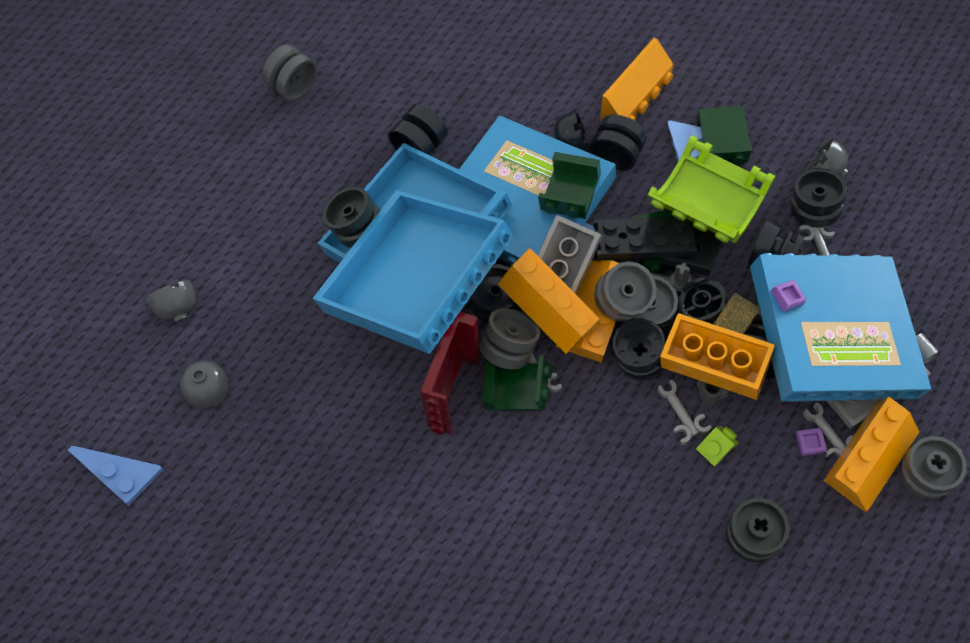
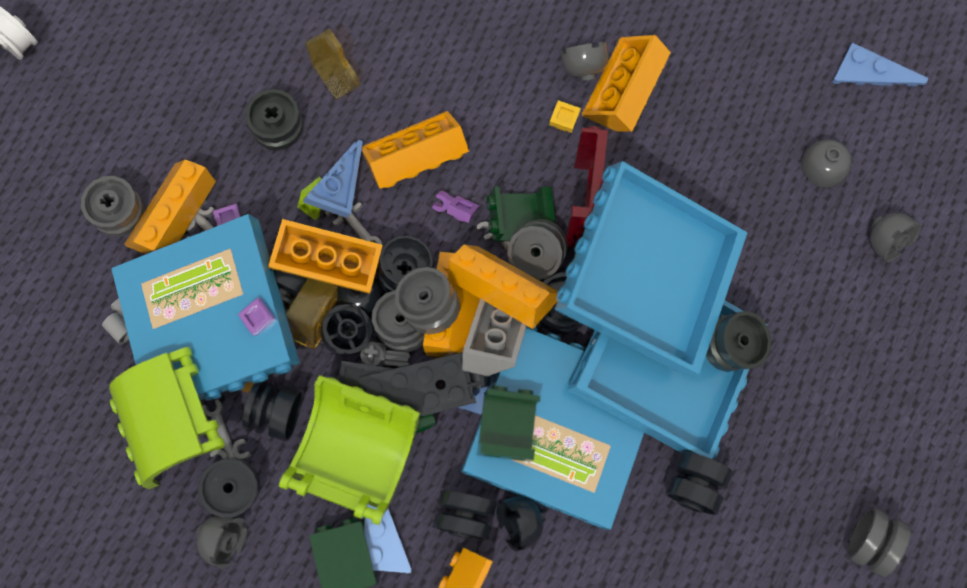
camera: 165 degrees right, 10 degrees up
(375, 503) = (627, 82): none -> light orange slope
(412, 534) = (585, 60): none -> dark grey cylinder
(449, 475) = (564, 116): none -> yellow tile
(575, 405) = (457, 207): none -> medium lavender plate
(612, 475) = (415, 149): none -> light orange slope
(686, 582) = (330, 63): none -> clear yellow panel
(696, 442) = (337, 187): none -> medium blue wing
(876, 242) = (161, 415): none -> lime hinge

